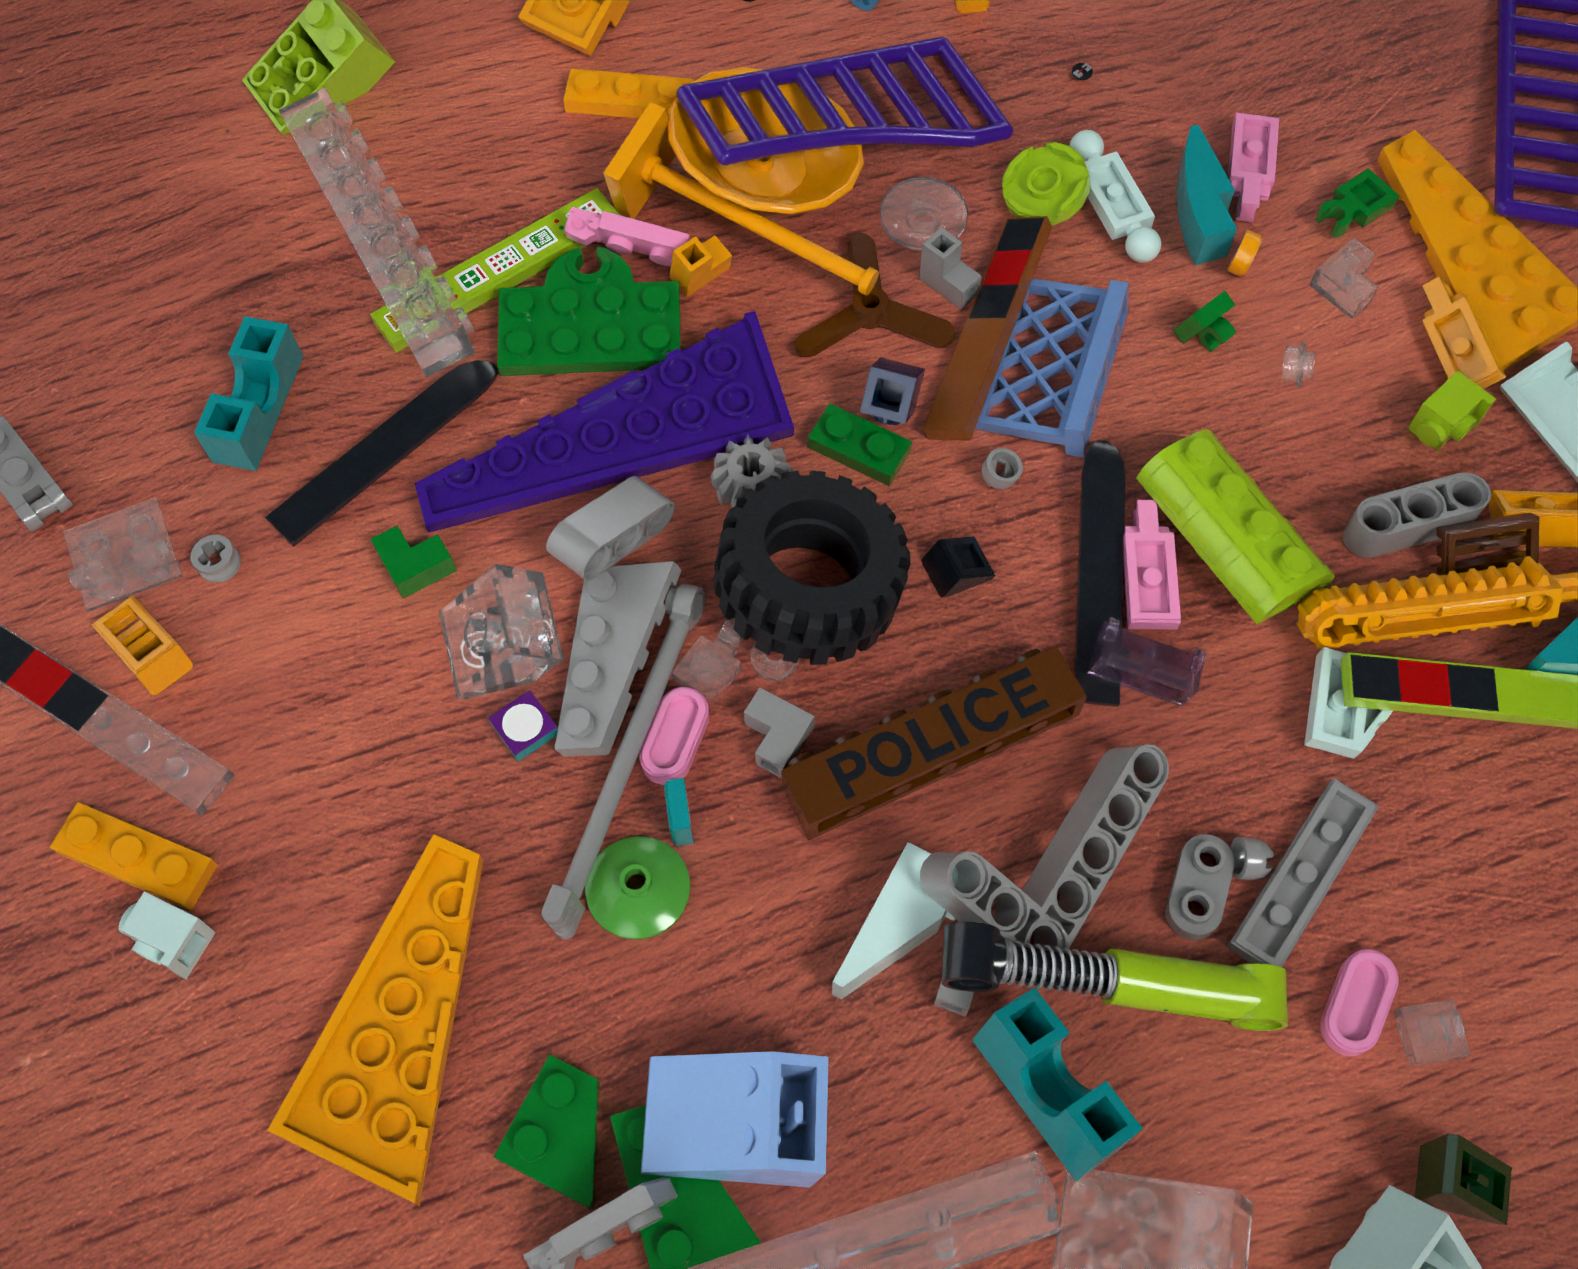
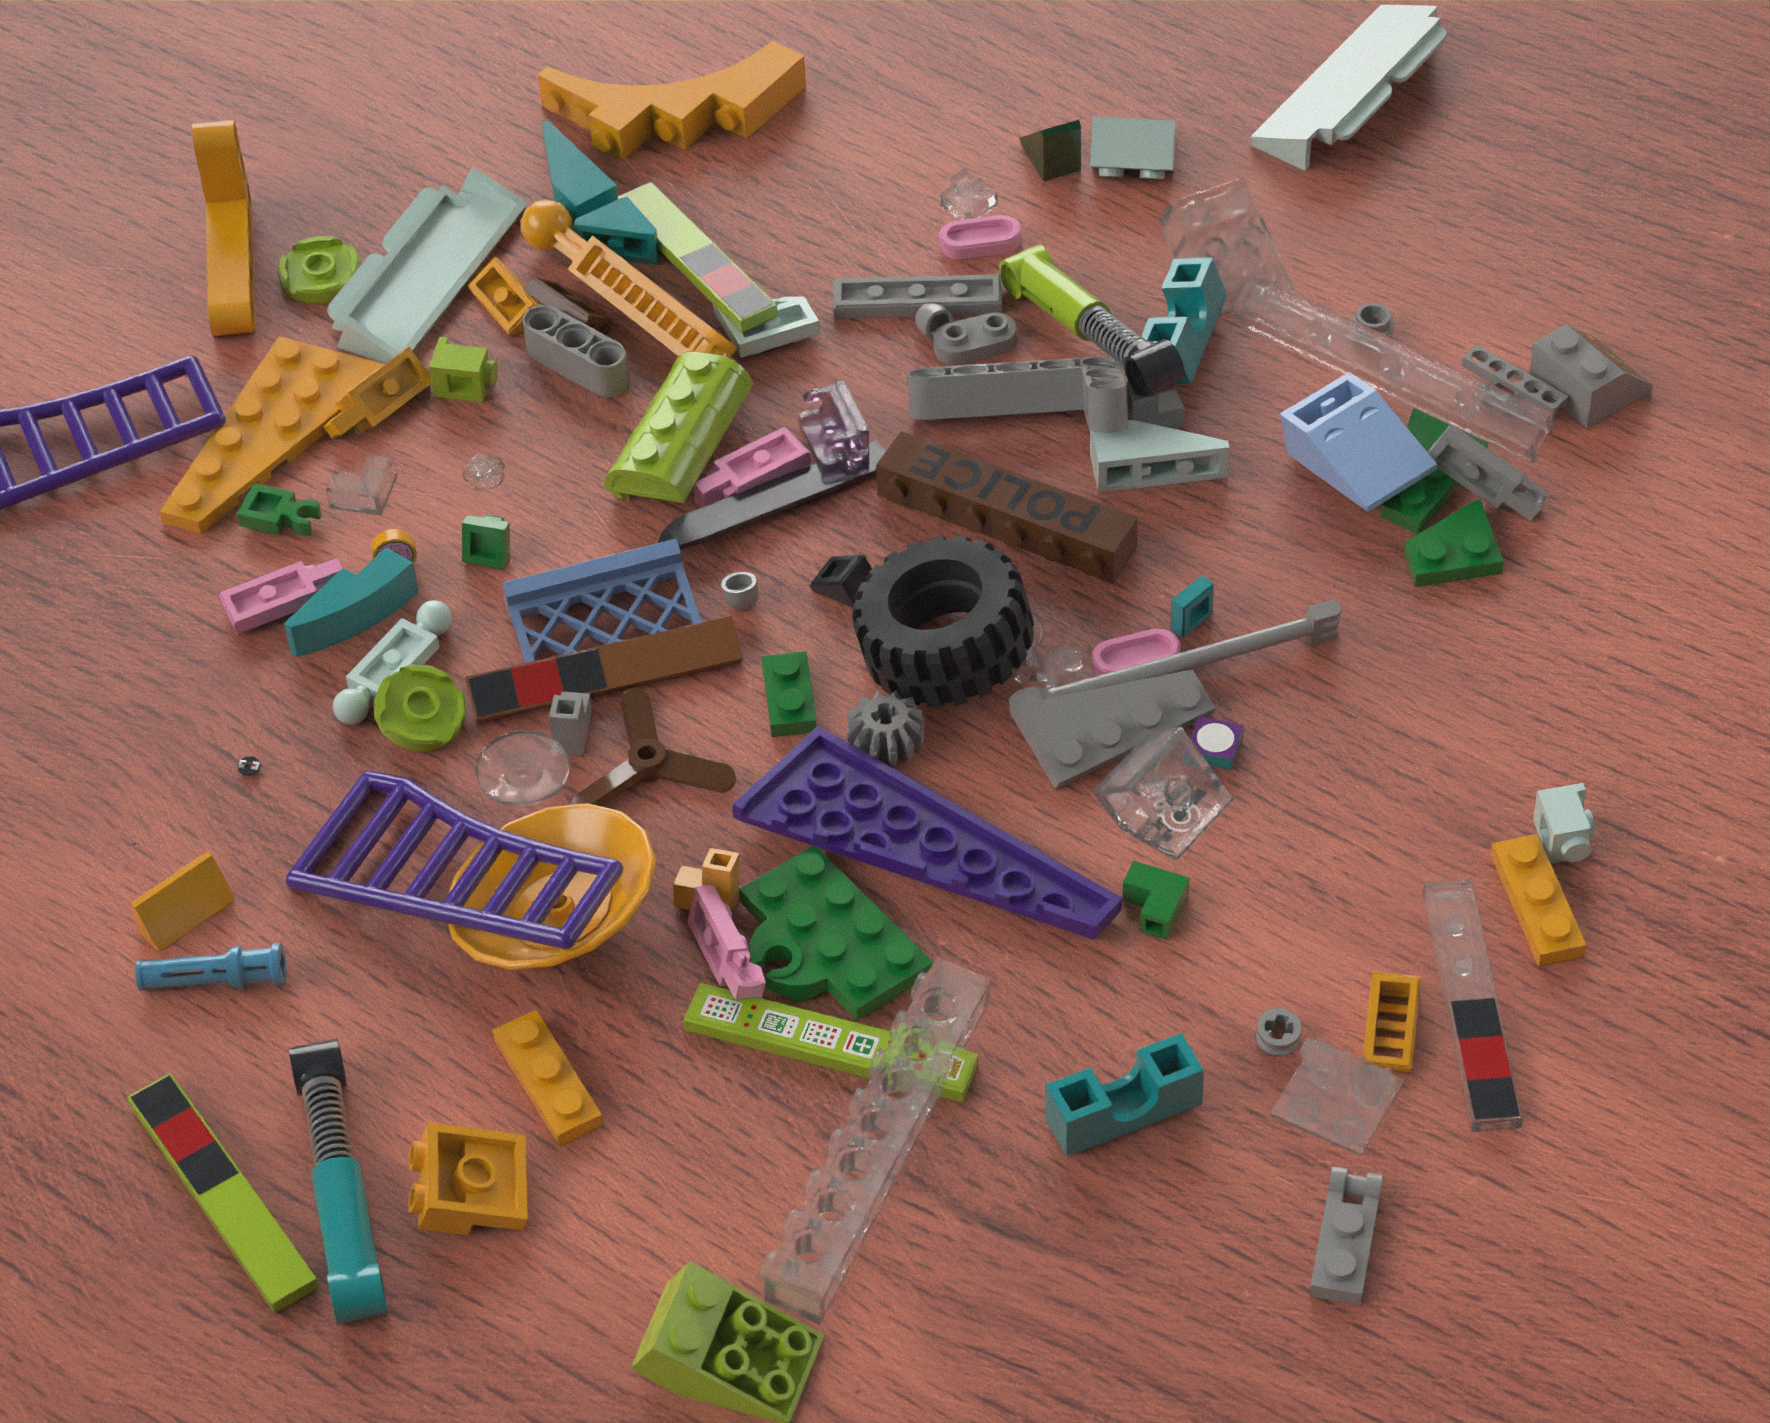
camera: 125 degrees left, 15 degrees down
(381, 450) = (1097, 992): black piece -> none
(382, 1058) = (1493, 661): light orange wing -> none
(610, 527) = (1017, 768): light grey beam -> none
(641, 911) = (1258, 605): bright green dish -> none
(645, 162) = (645, 957): light orange tile -> none
(784, 729) = (1076, 592): light grey piece -> none
(892, 391) = (731, 678): dark blue brick -> none

